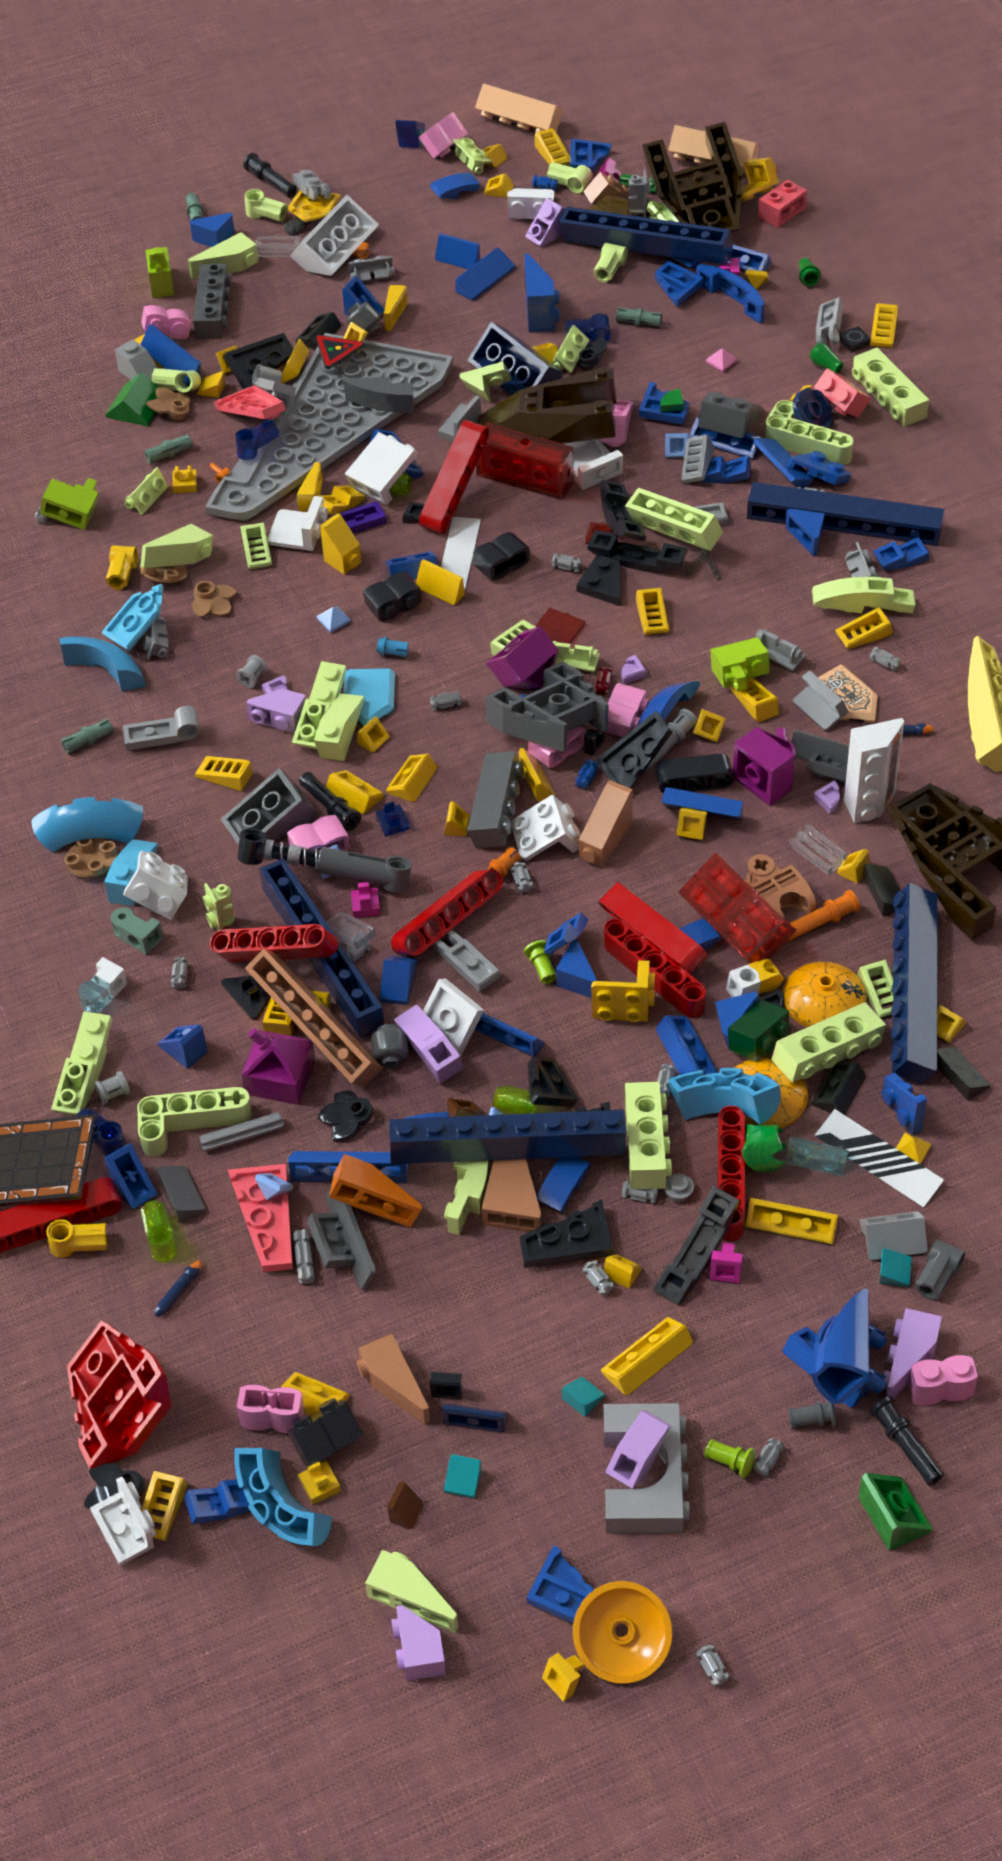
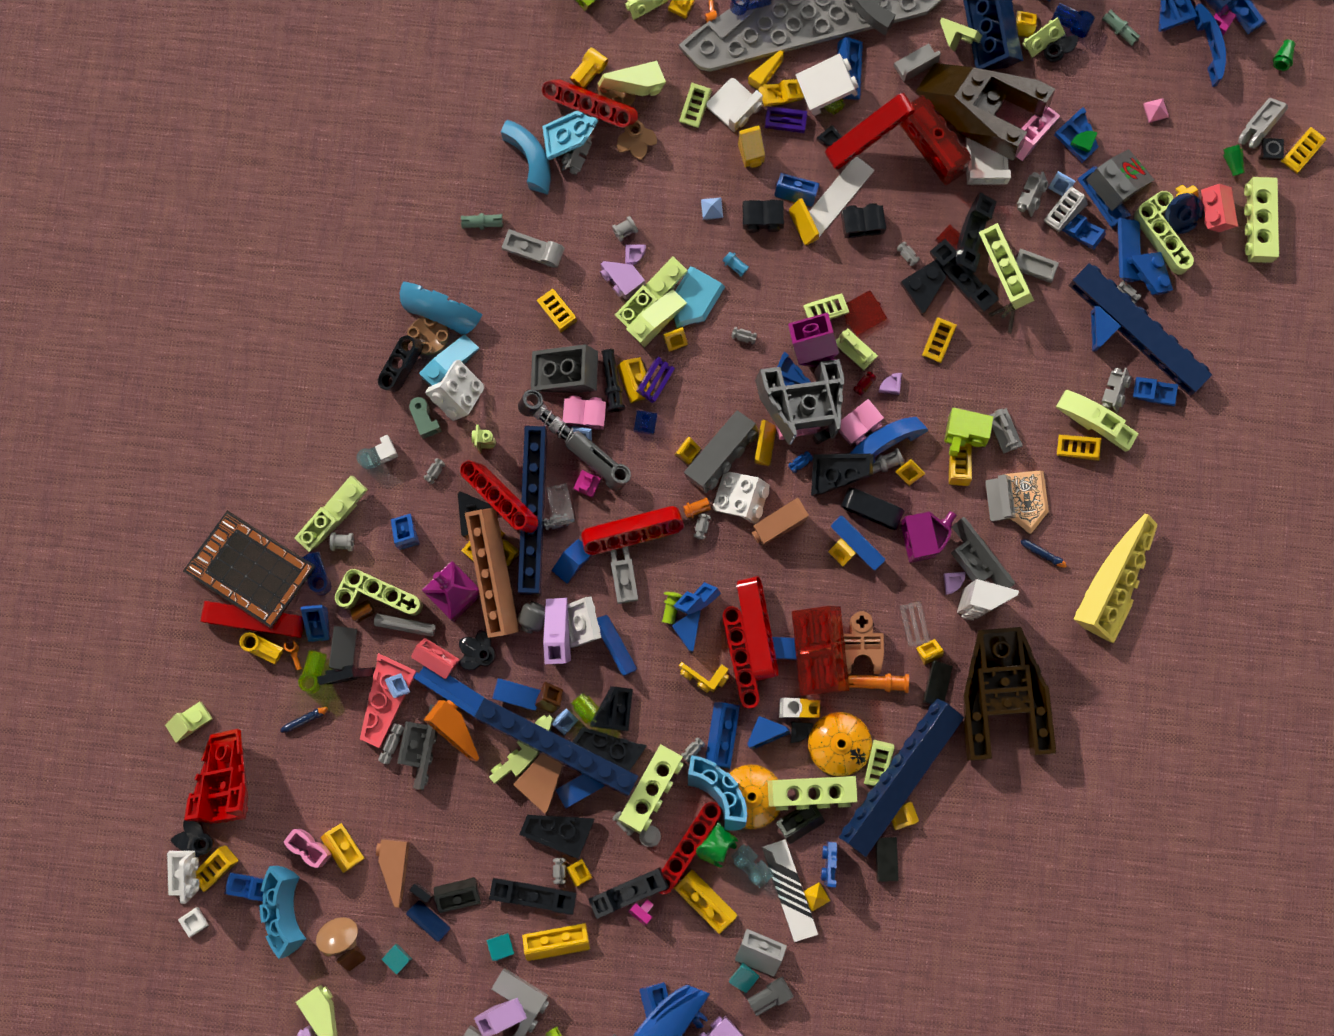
camera: 30 degrees right, 30 degrees up
(28, 1366) = (186, 723): none -> yellowish green slope
(80, 899) = (391, 367): none -> black beam
(119, 1227) = (294, 655): none -> orange hand
(131, 580) = (598, 103): none -> red beam
(170, 1582) = (193, 922): none -> white tile
(182, 1144) = (362, 611): none -> reddish brown slope
(201, 1209) = (348, 674): none -> black wing
(299, 1143) = (434, 658): none -> coral slope
(319, 1482) = (313, 909): yellow tile -> none
(324, 1432) = (330, 884): black brick -> none
(371, 1485) = (337, 936): none -> medium nougat dish
(378, 764) = (664, 366): none -> dark purple tile
(412, 777) = (681, 391): yellow slope -> none
(492, 1371) = (456, 895): none -> pearl dark grey slope
(588, 1319) = (533, 895): none -> black slope
(653, 466) = (1031, 201): none -> light grey hinge
(757, 278) = (1239, 38): yellow slope -> none
(758, 1030) = (774, 754): dark green brick -> none
(885, 659) = (1075, 483): light grey piece -> none

